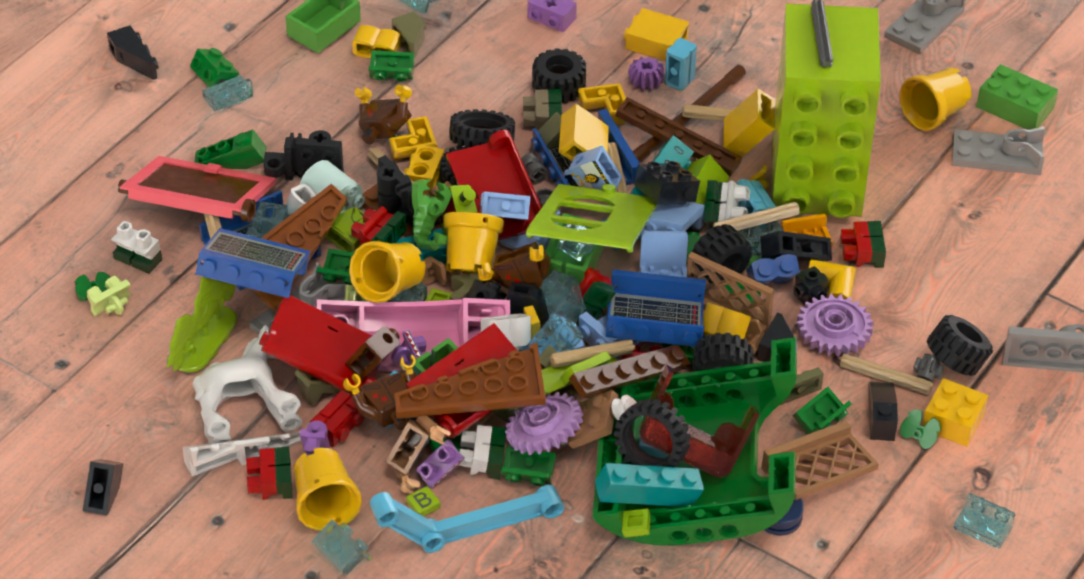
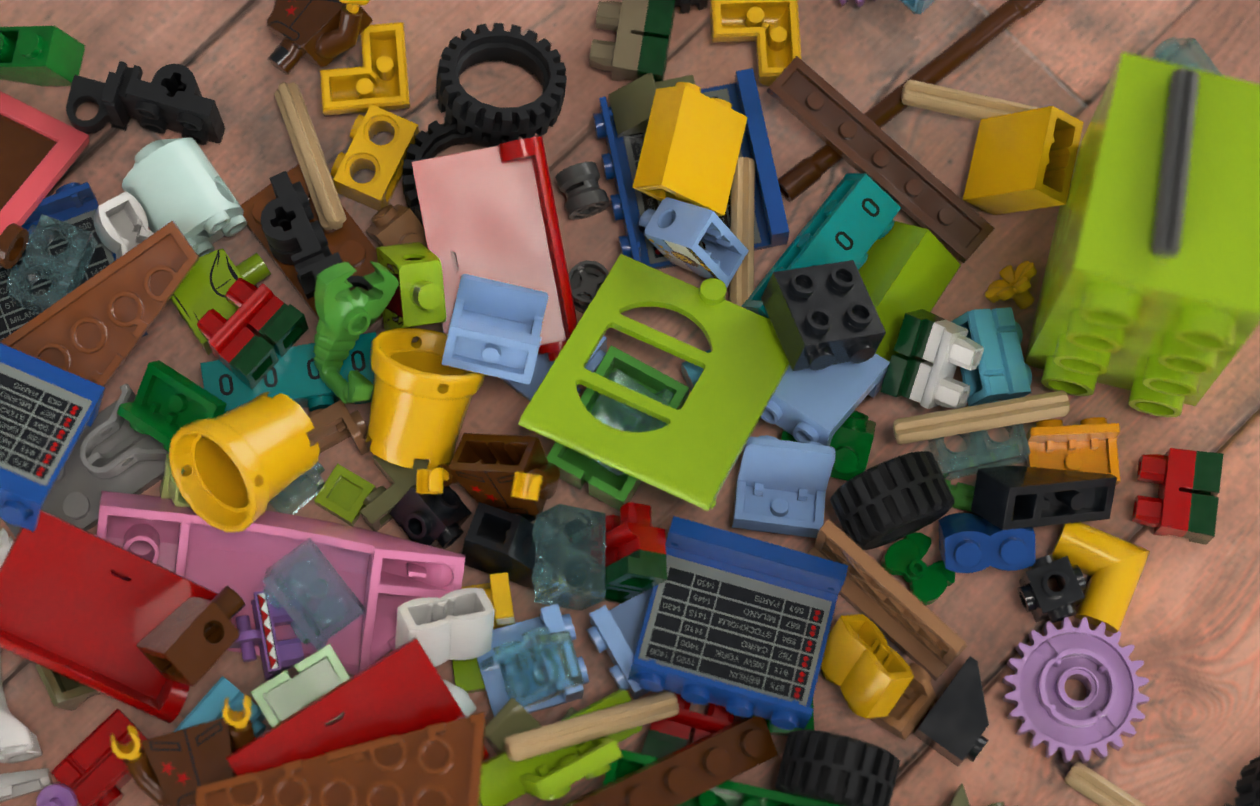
camera: 10 degrees right, 30 degrees up
(432, 325) = (311, 594): none -> clear light blue bracket

